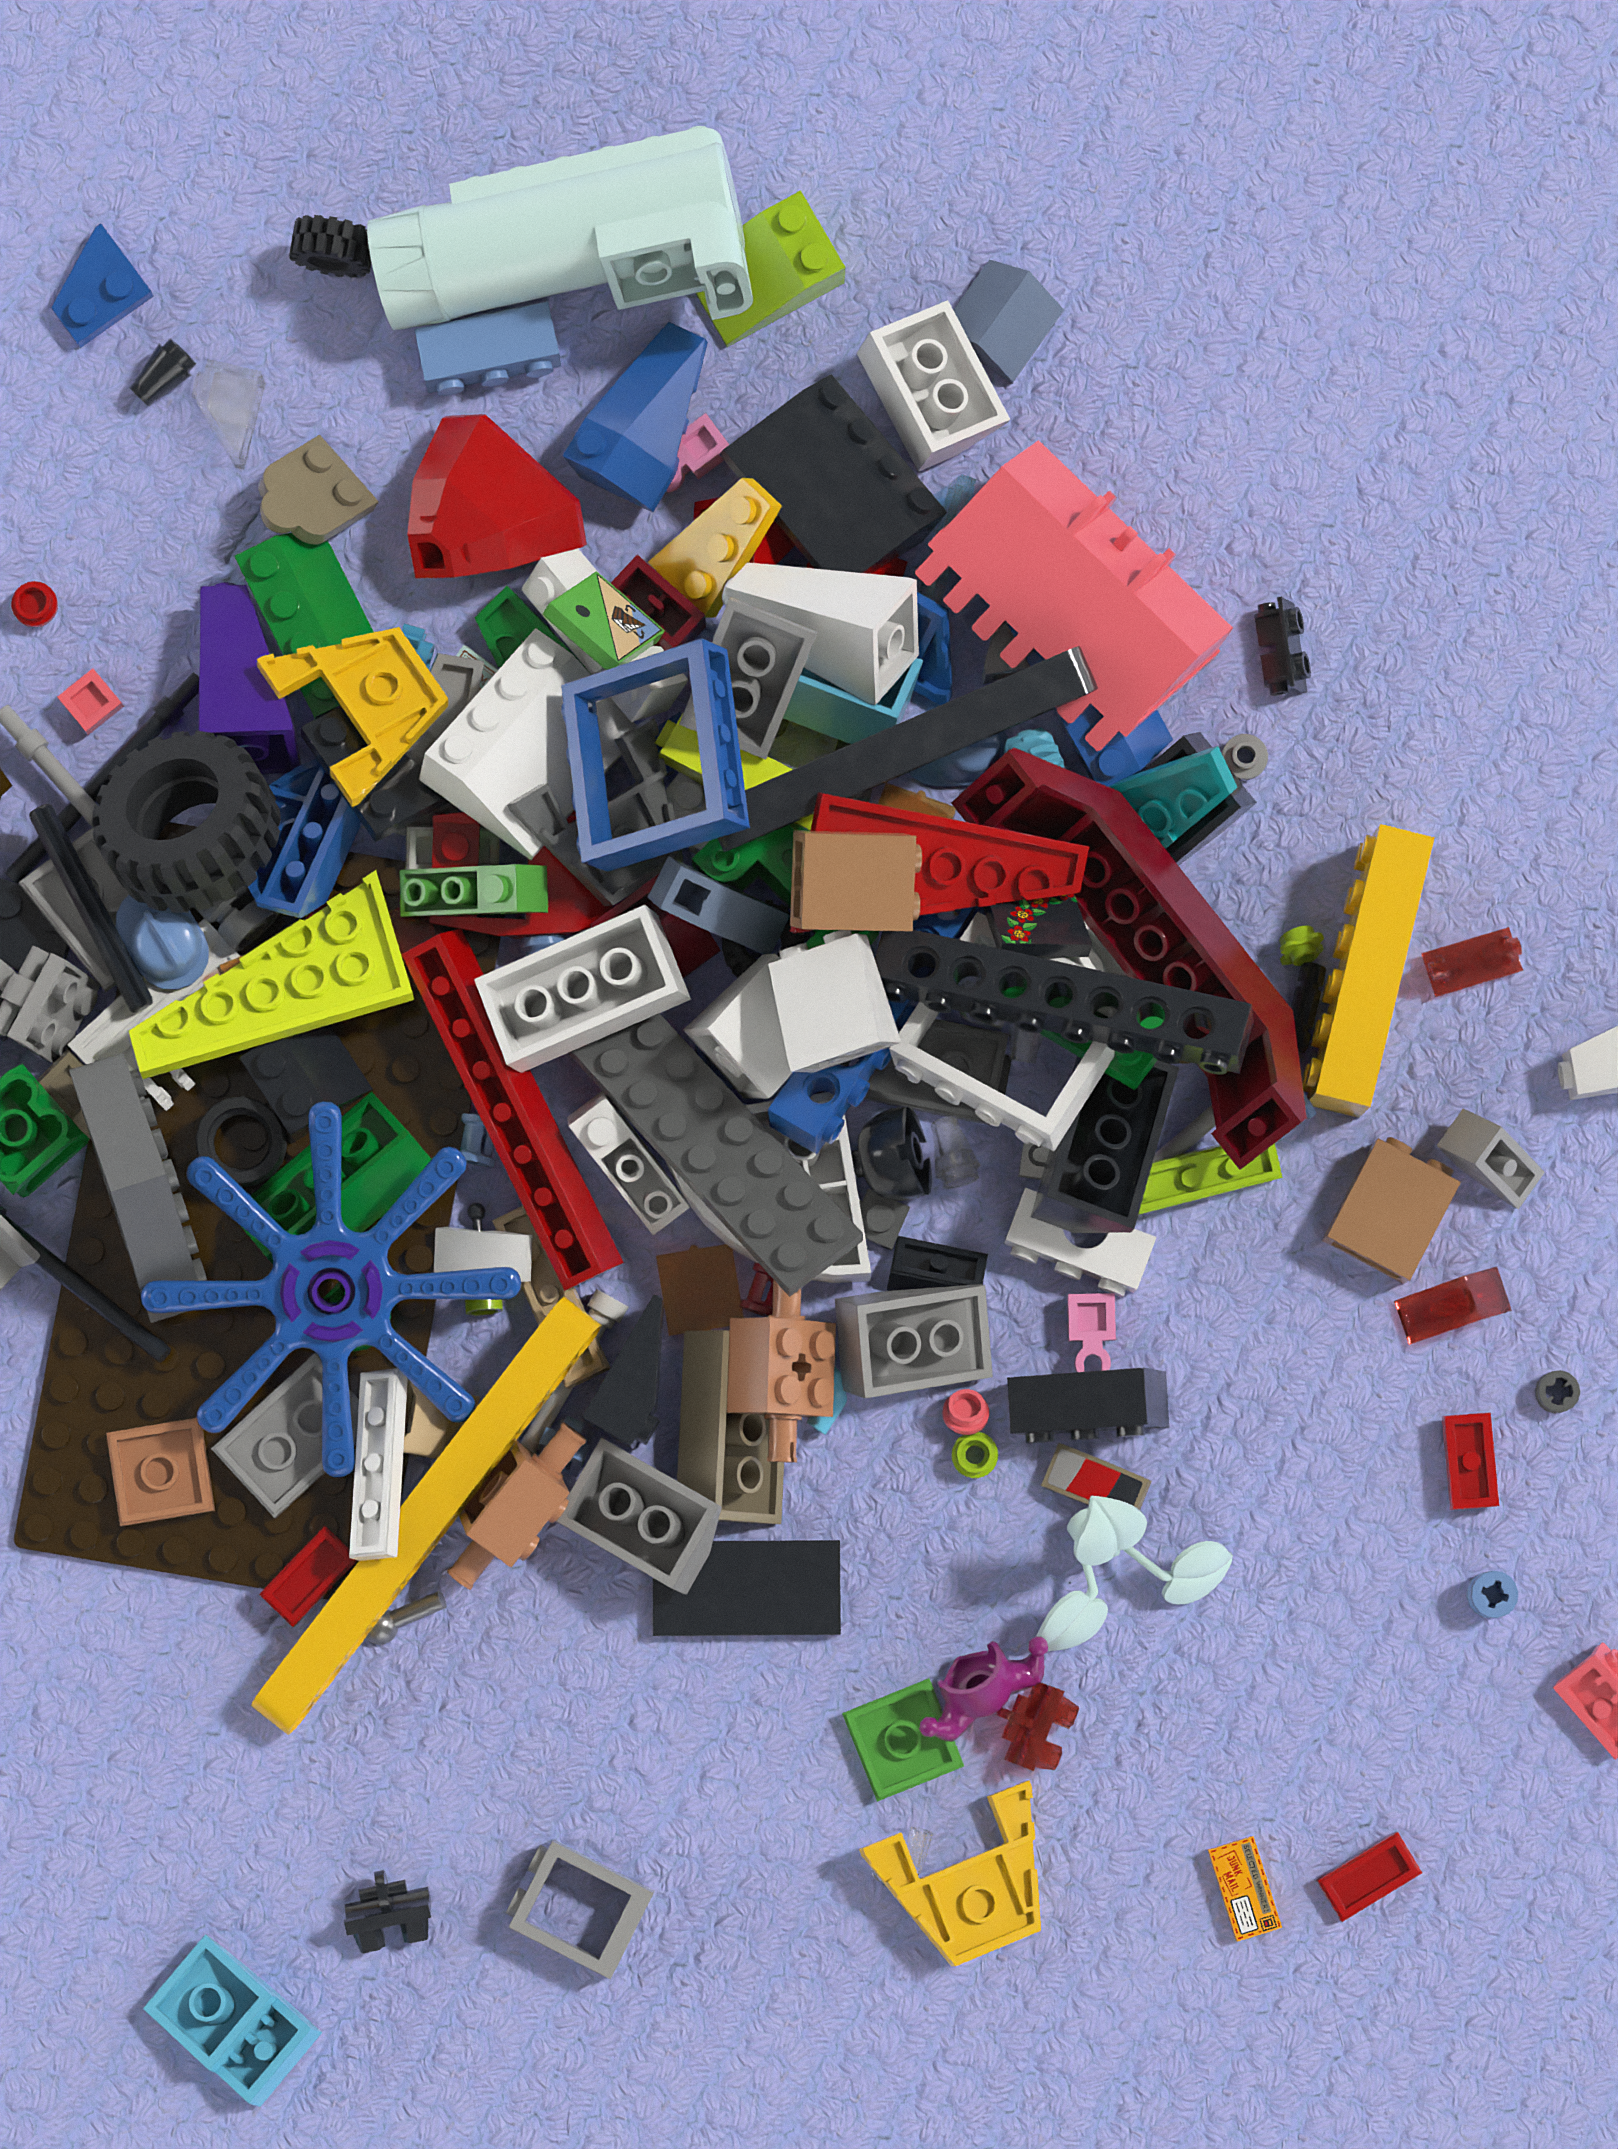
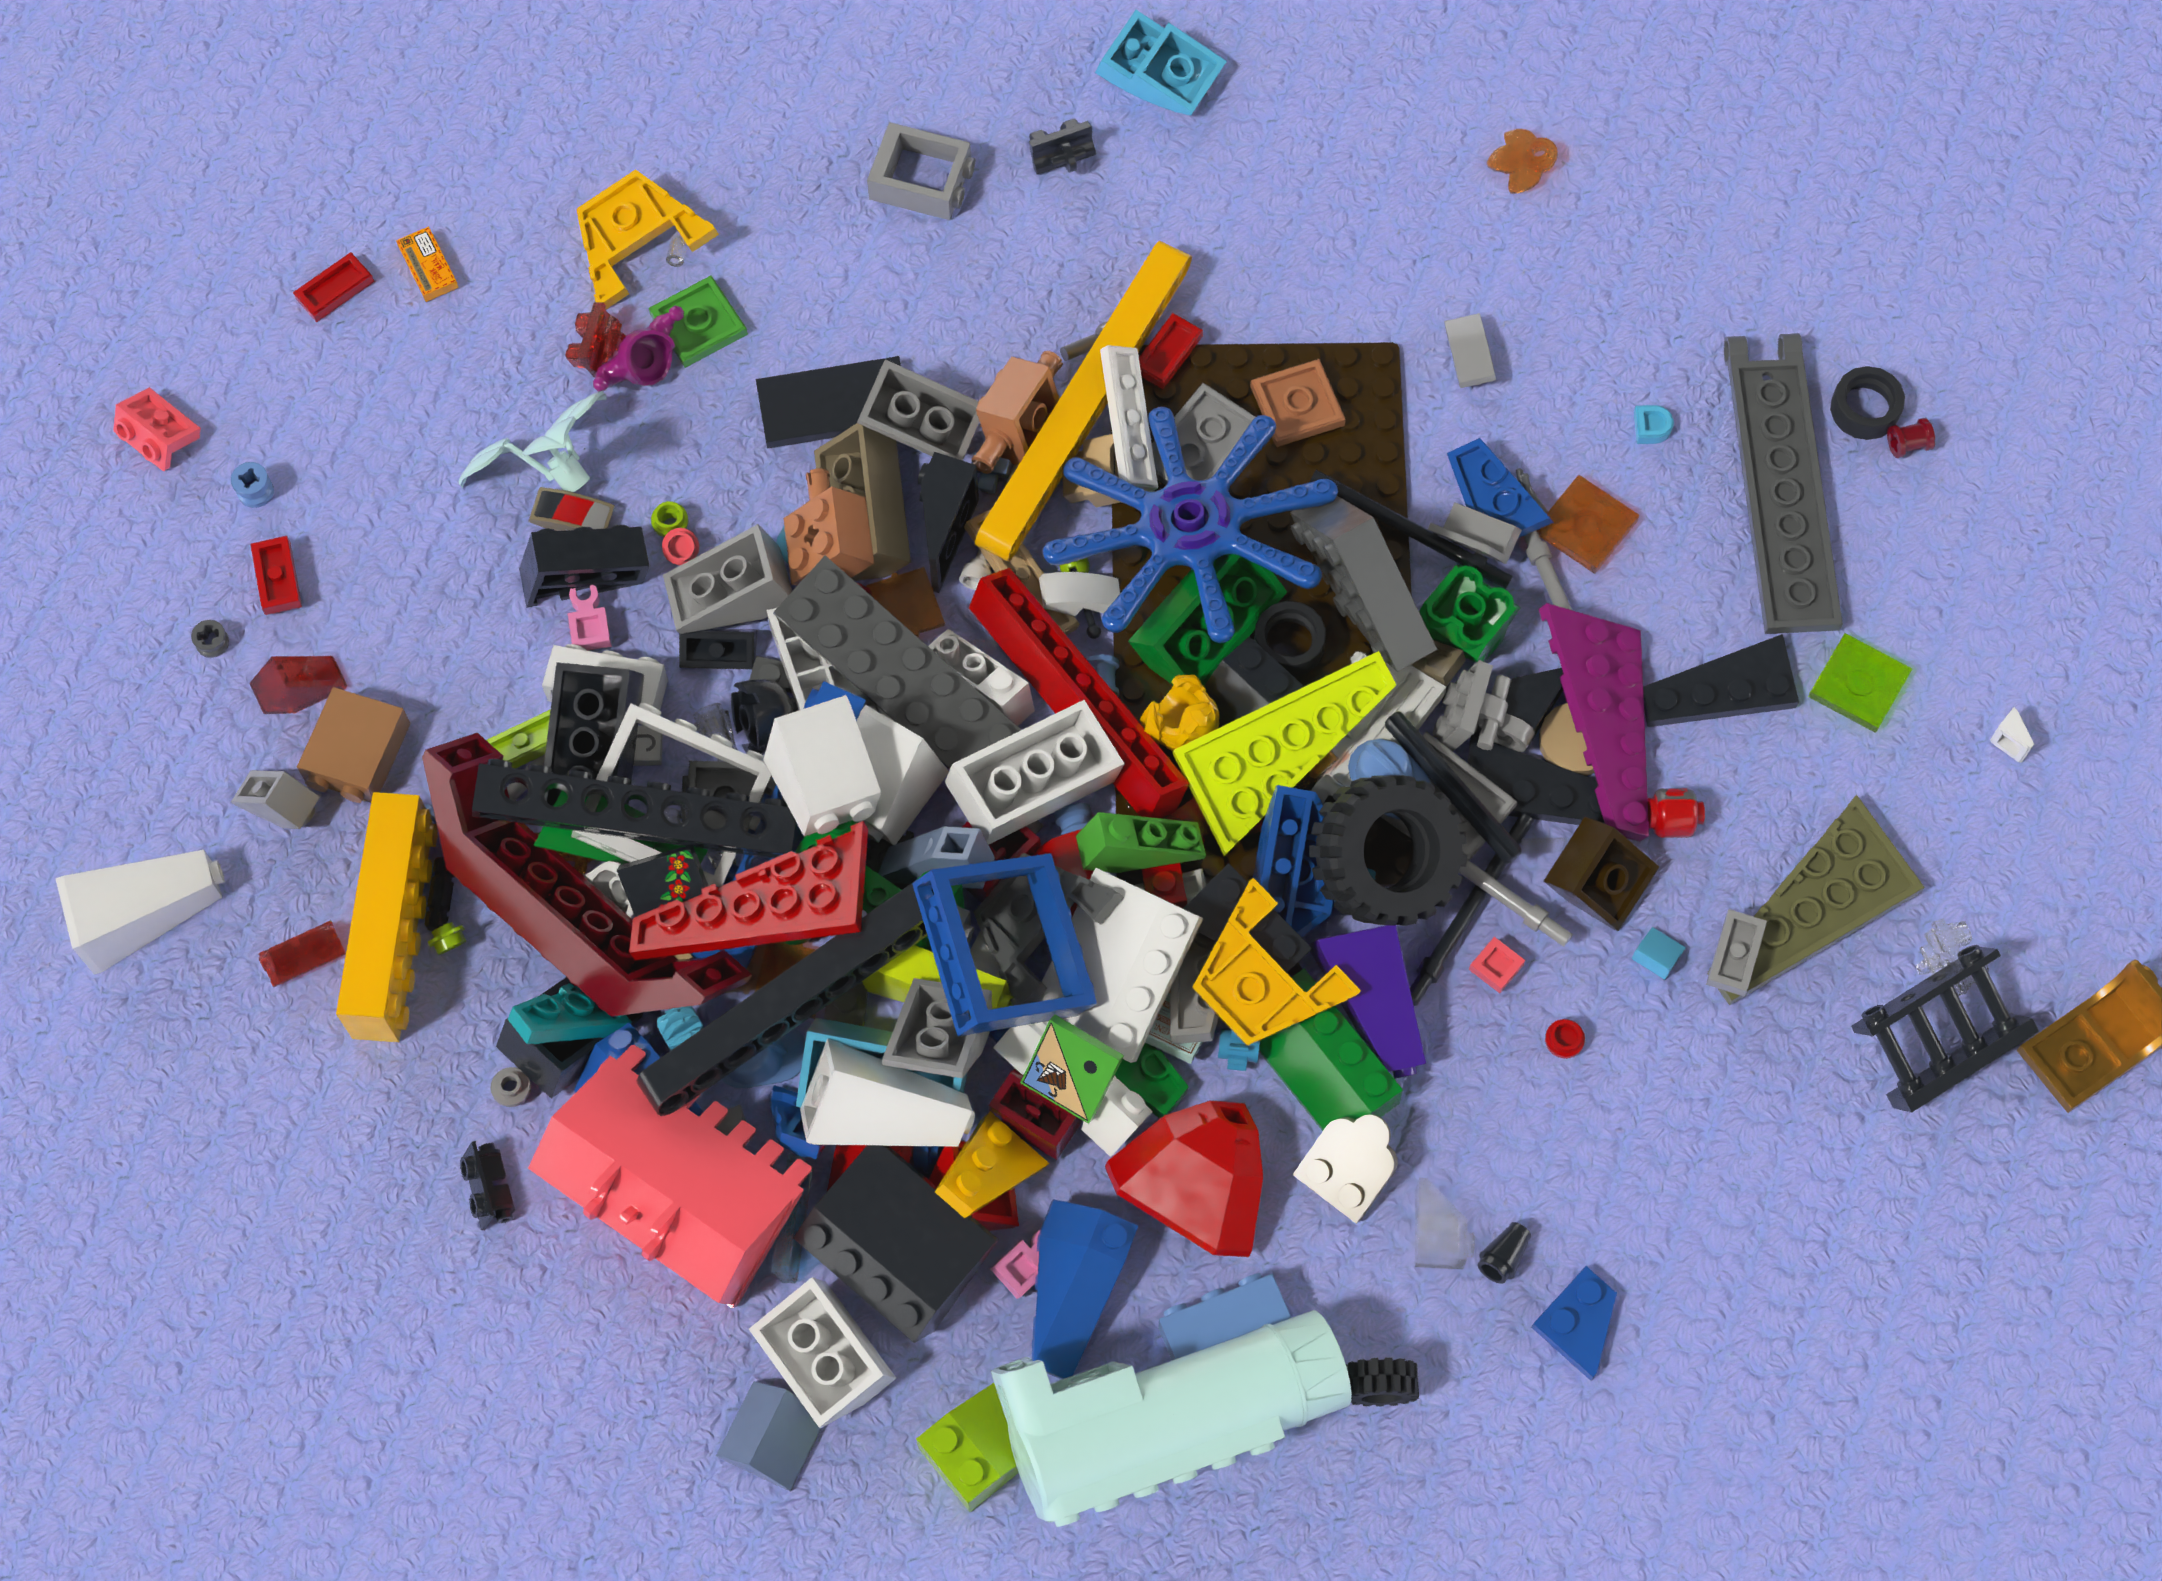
camera: 175 degrees right, 15 degrees down
(394, 1052) = (1182, 714): none -> yellow helmet
(854, 881) = (818, 860): medium nougat brick -> none

